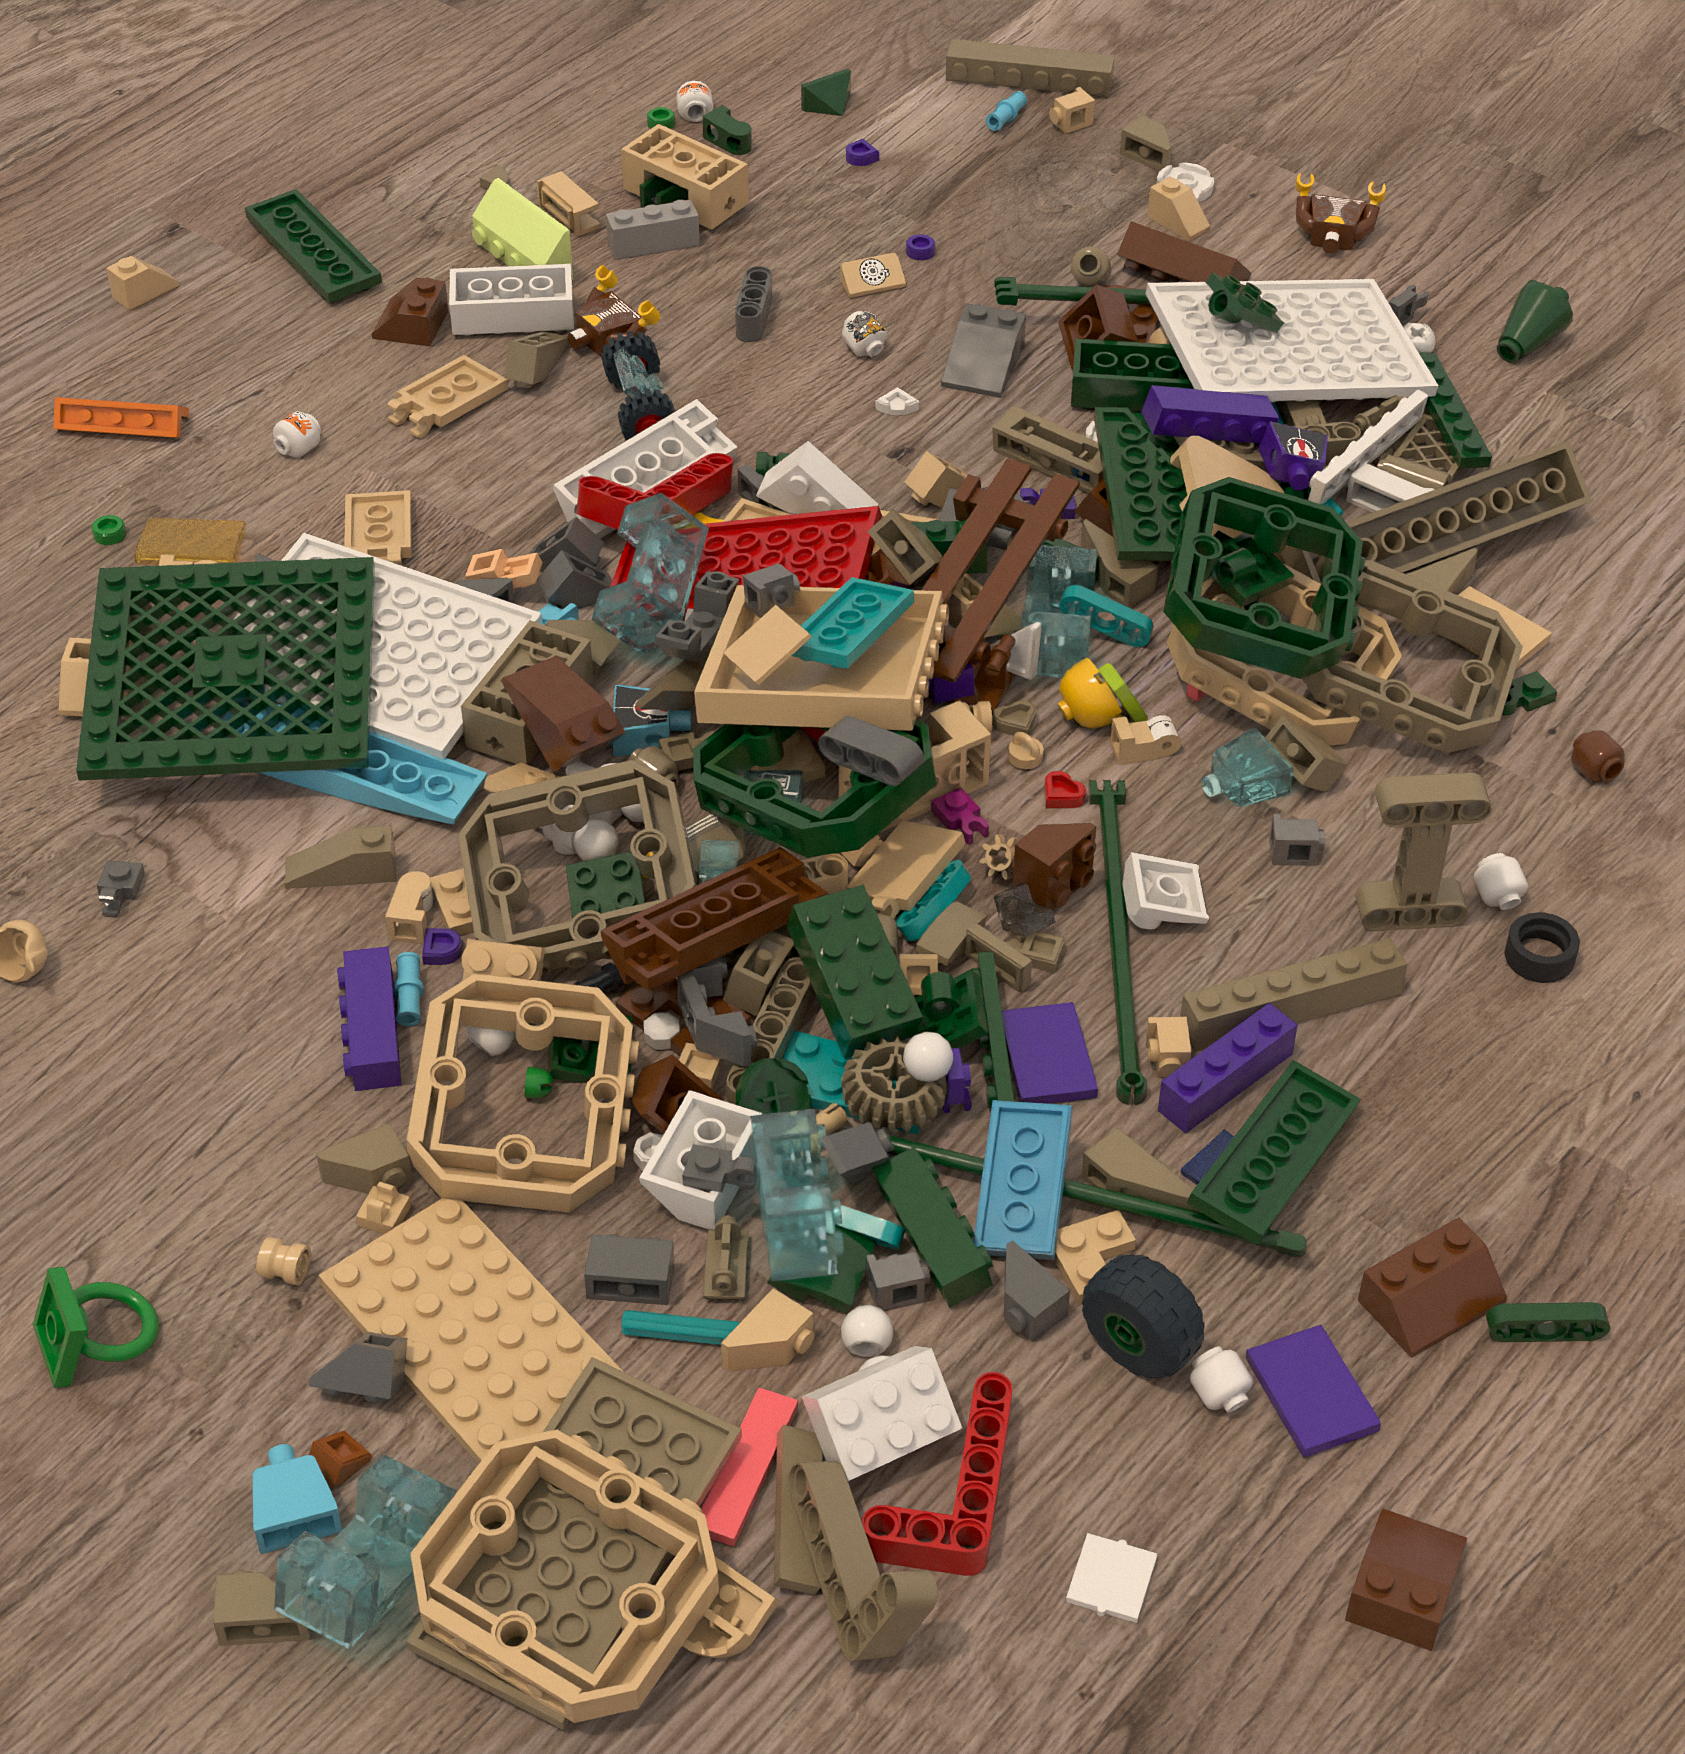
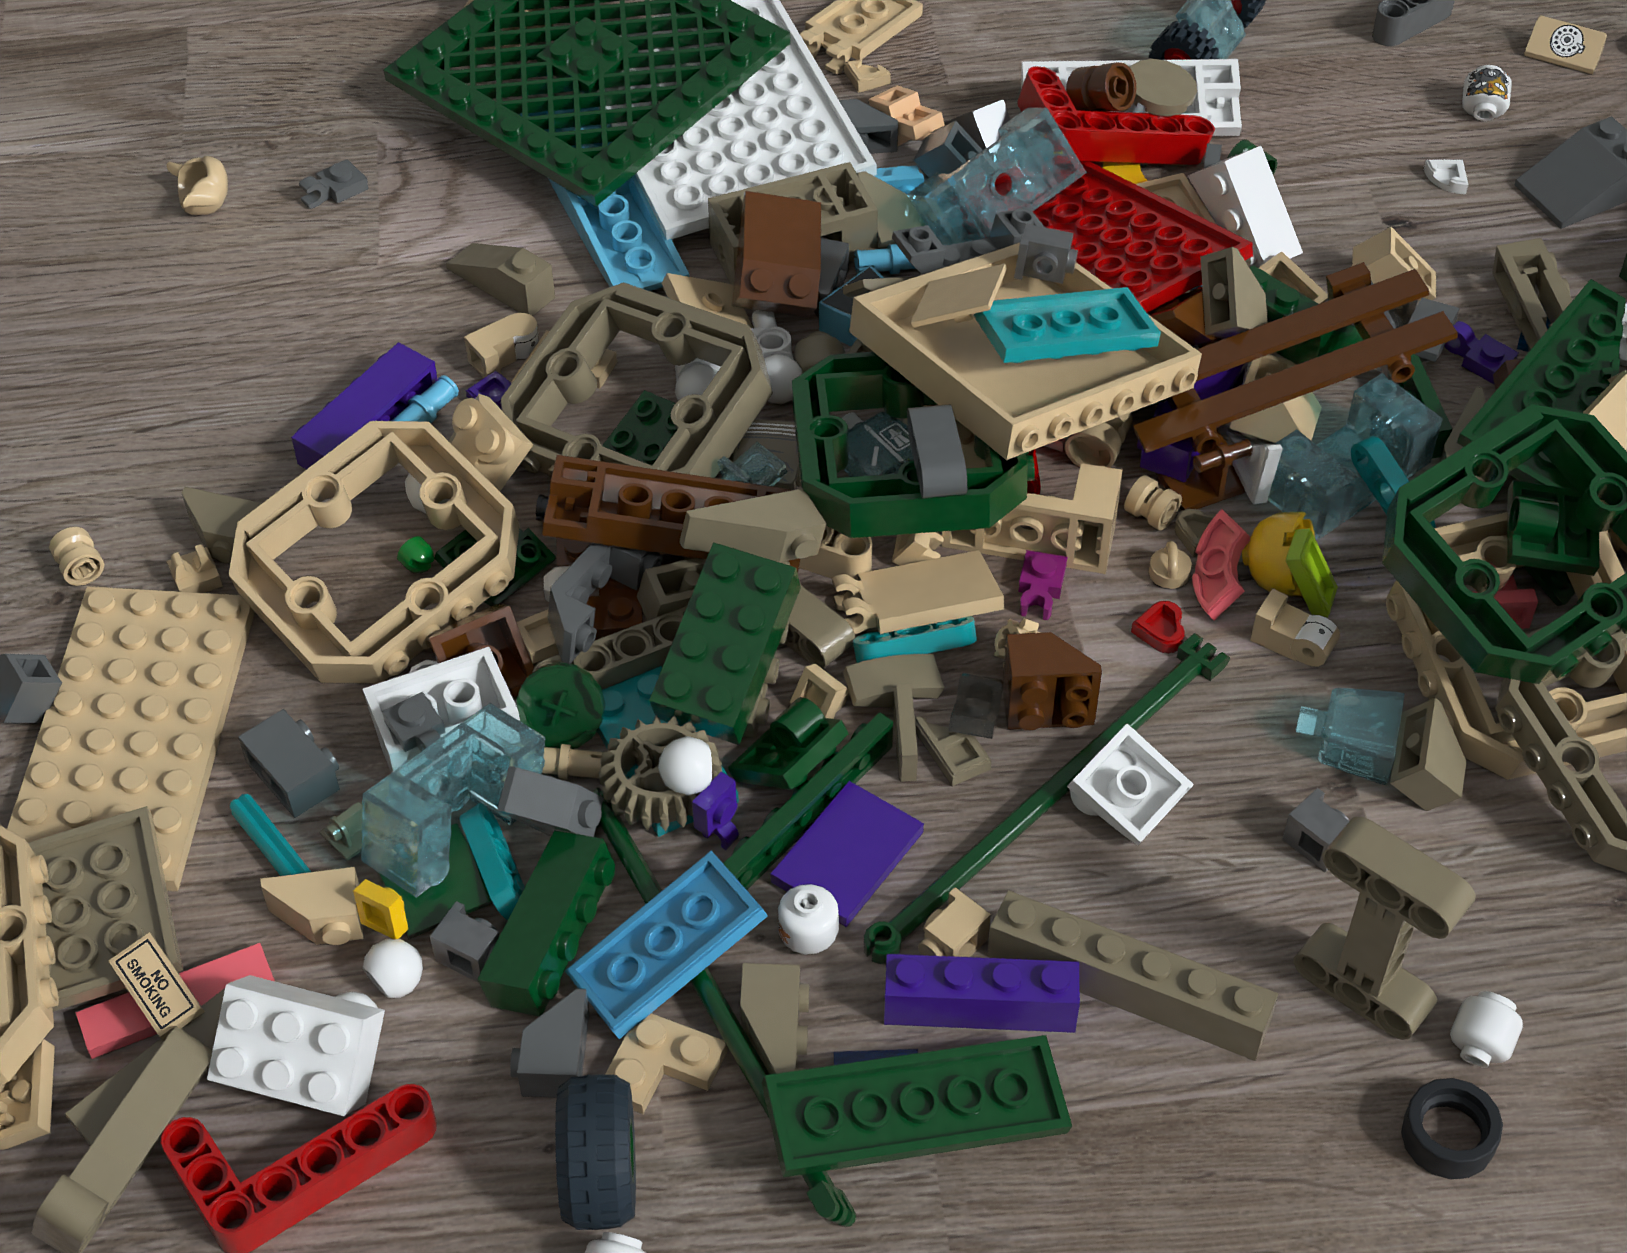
camera: 45 degrees right, 5 degrees up
(429, 564) = (866, 77): none -> tan tile
(616, 672) = (882, 260): none -> medium azure pin
(644, 467) = (1102, 87): none -> reddish brown wheel
(672, 446) = (1163, 87): none -> dark tan tile
(749, 1452) = (156, 986): none -> tan tile
(805, 874) = (768, 526): none -> dark tan slope
(826, 1297) = (381, 909): none -> yellow plate
(1055, 730) = (1216, 564): none -> coral tile
(1088, 1101) = (808, 919): none -> white head

